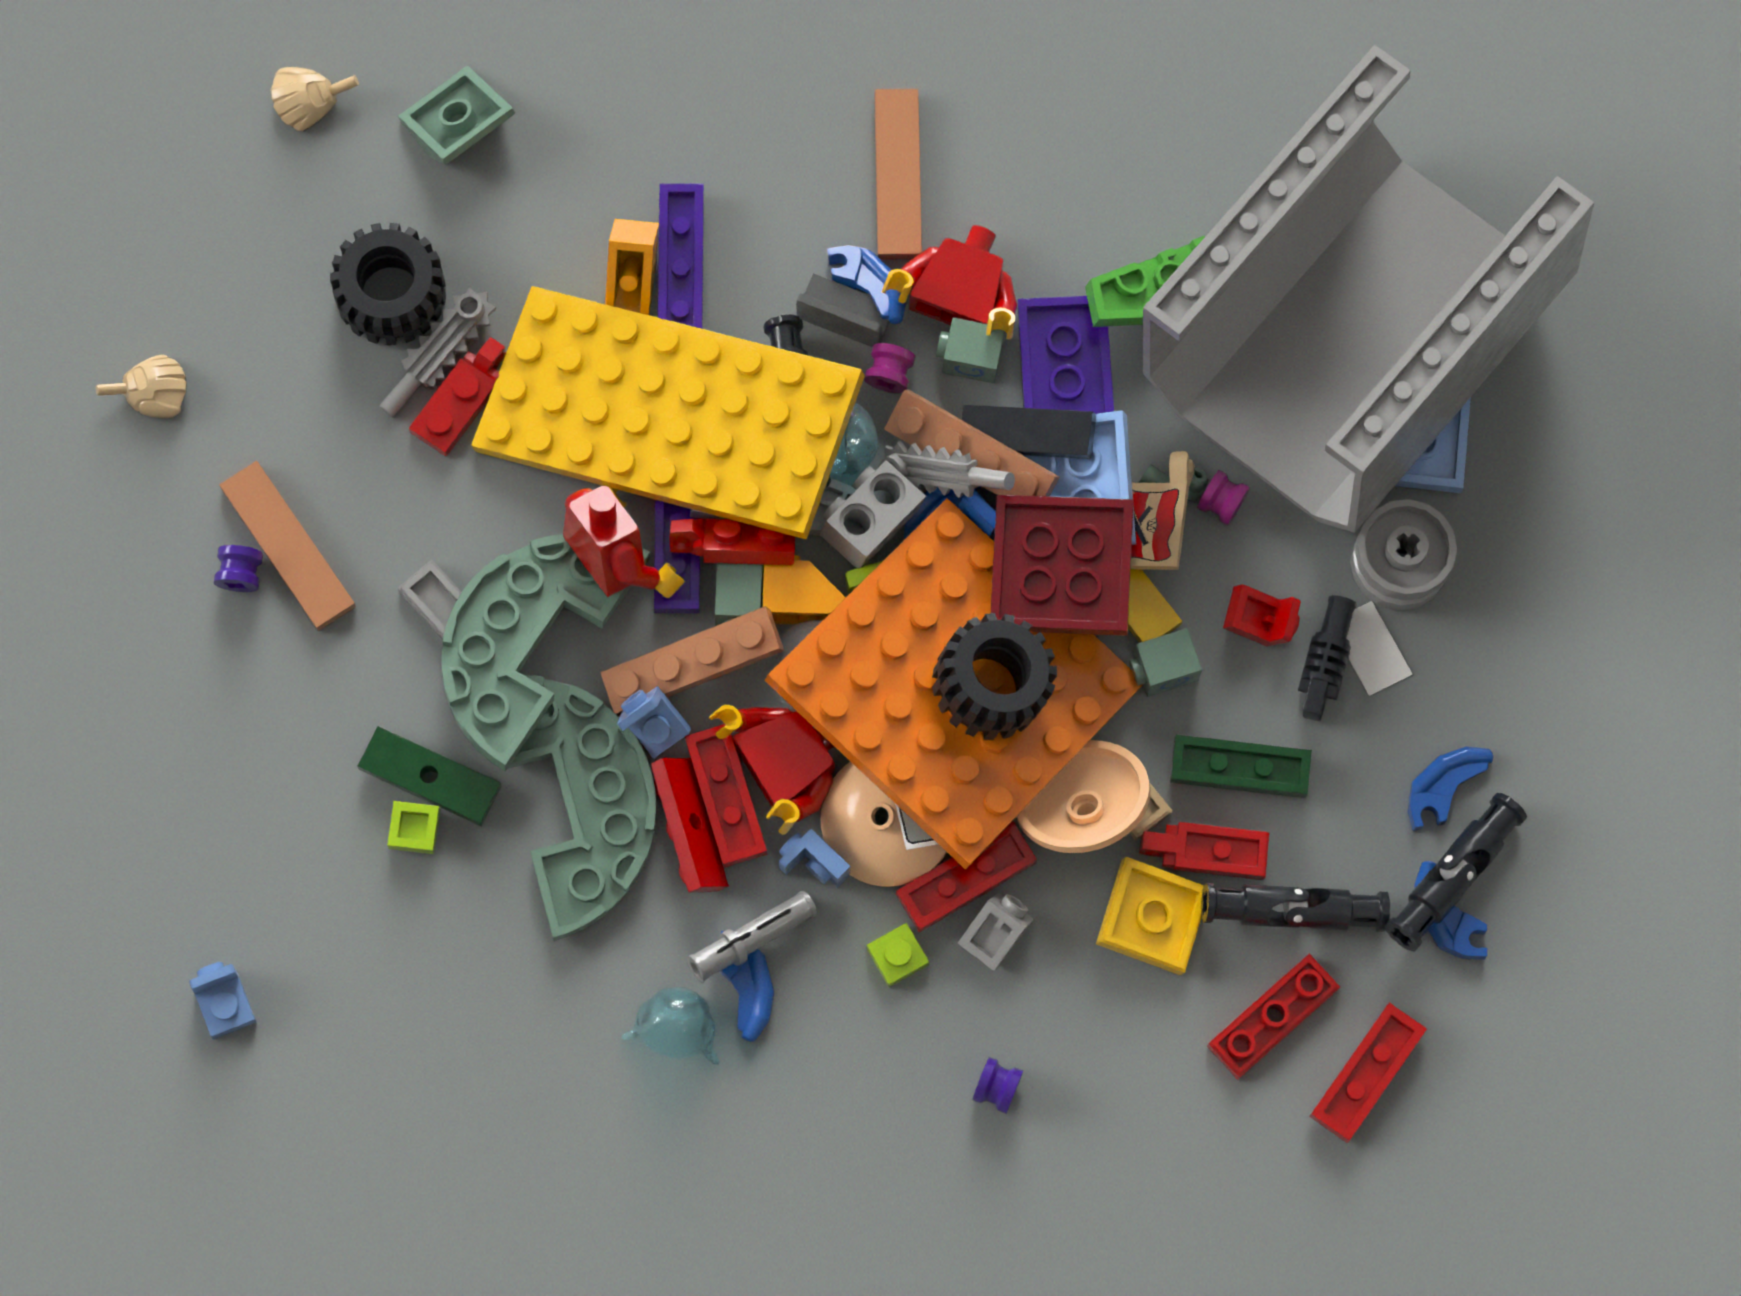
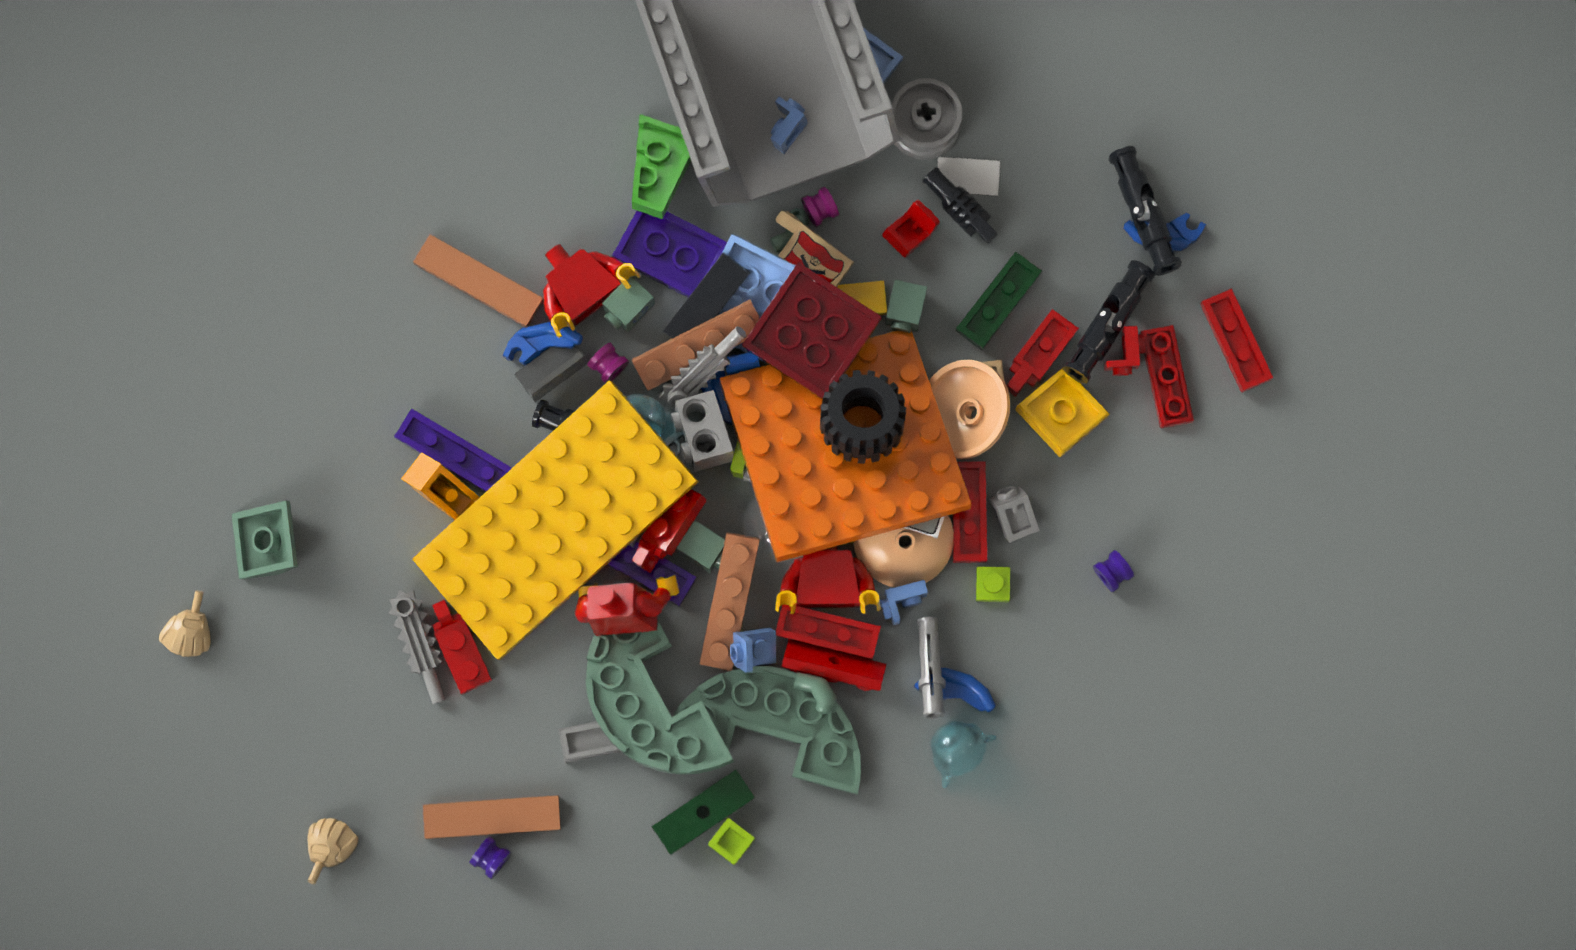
camera: 55 degrees left, 5 degrees up
(379, 251) = (332, 634): black tyre -> none
(649, 821) = (820, 689): none -> sand green arm
(798, 592) = (725, 507): light orange slope -> none
(1282, 952) = (1132, 346): none -> red bracket
(1290, 406) = (788, 129): none -> medium blue bracket
(1438, 782) = (1078, 186): blue piece -> none

